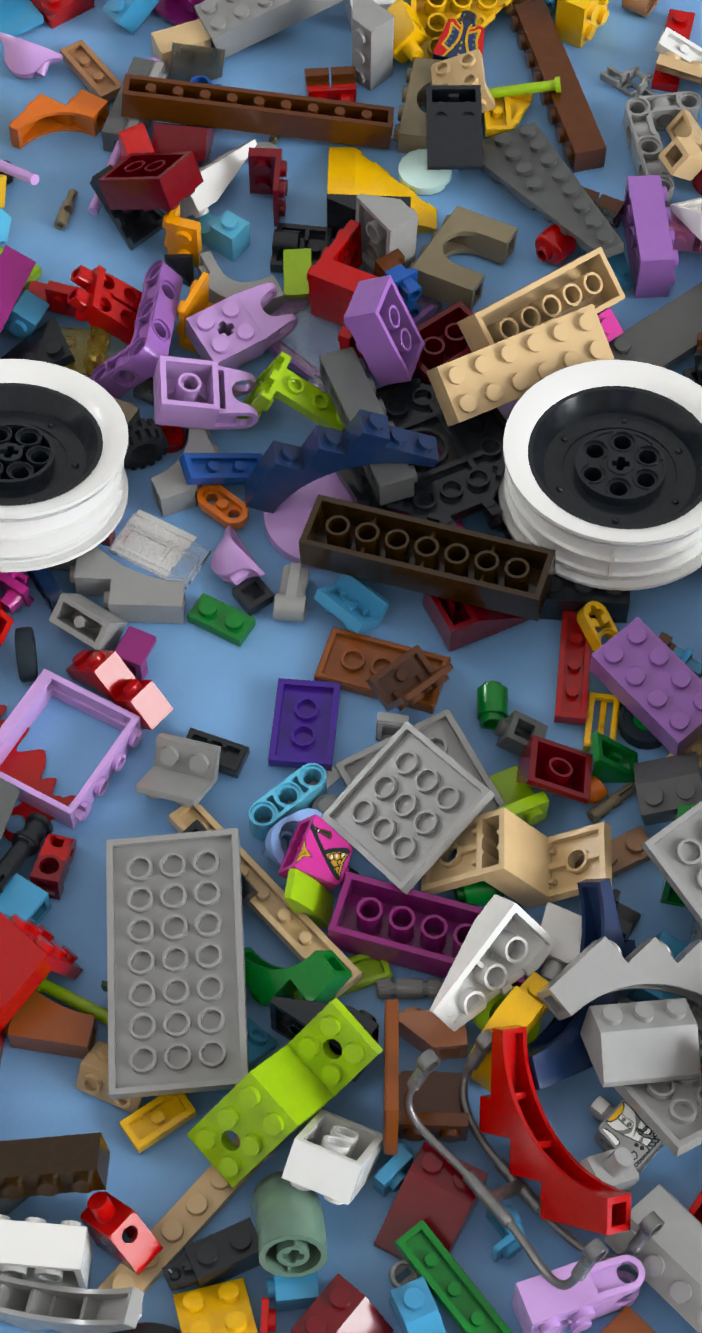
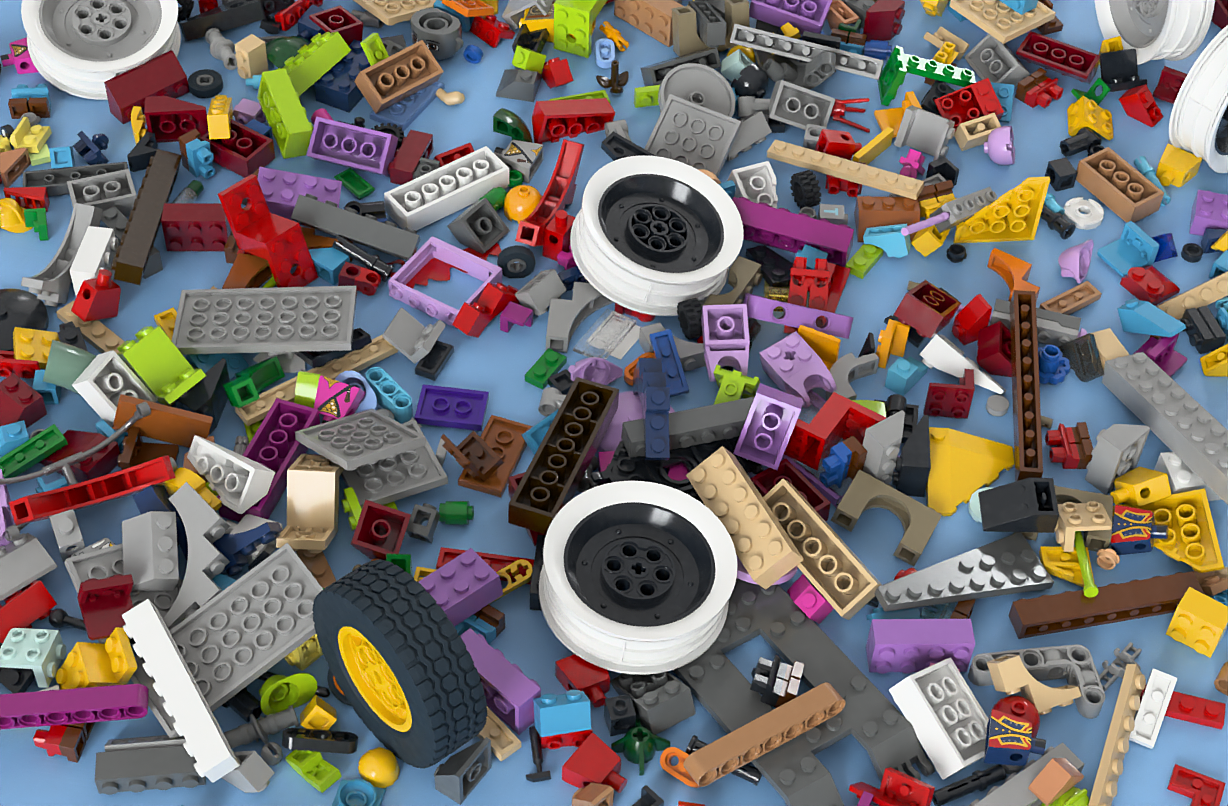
camera: 90 degrees right, 10 degrees down
(493, 77) = (1107, 558): none -> light nougat plate

